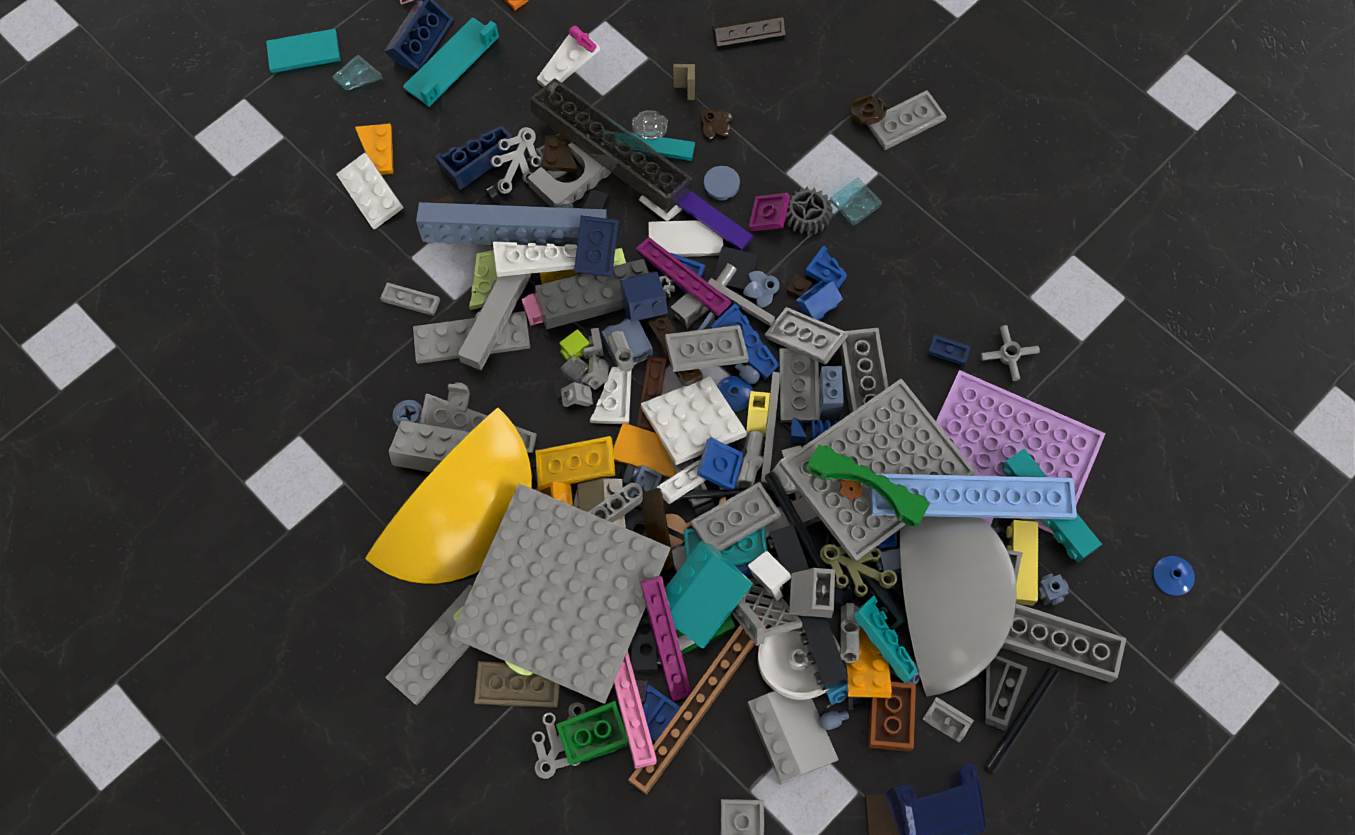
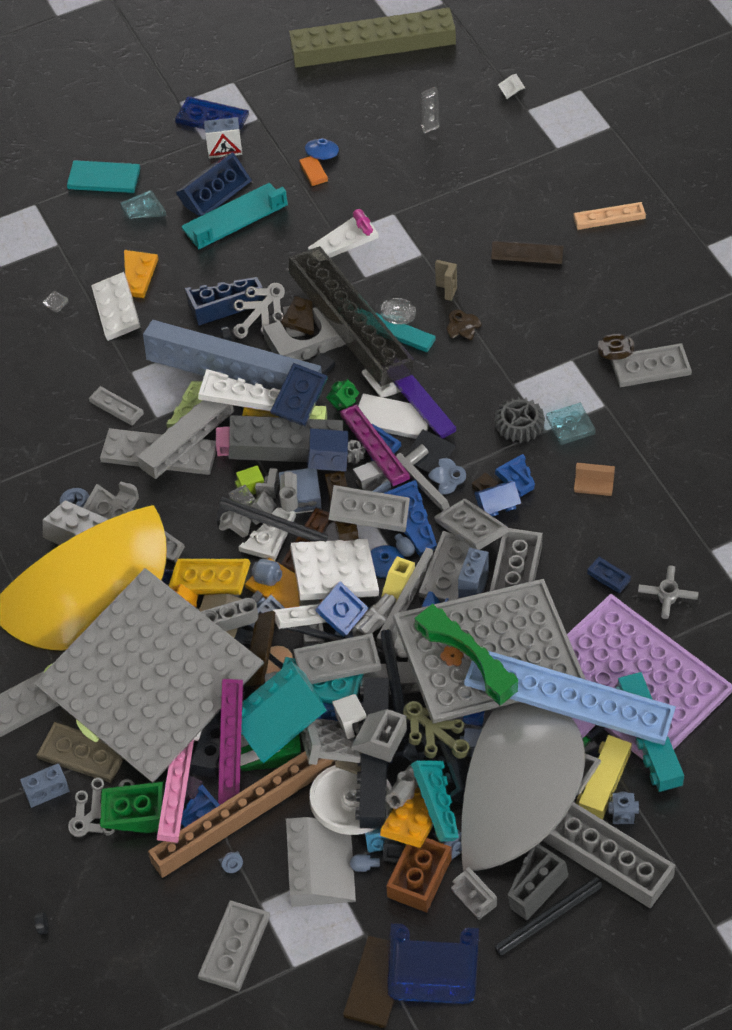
camera: 20 degrees right, 15 degrees down
(306, 200) = (55, 301): none -> clear tile
(495, 734) = (44, 785): none -> sand blue brick
(614, 384) = (272, 520): none -> black axle
(629, 442) = (266, 572): none -> sand blue head
(631, 229) = (342, 394): none -> green brick
(707, 758) = (231, 862): none -> sand blue plate
(721, 182) = (447, 377): sand blue tile -> none
(769, 212) = (480, 411): magenta tile -> none
(898, 254) = (594, 479): none -> medium nougat panel

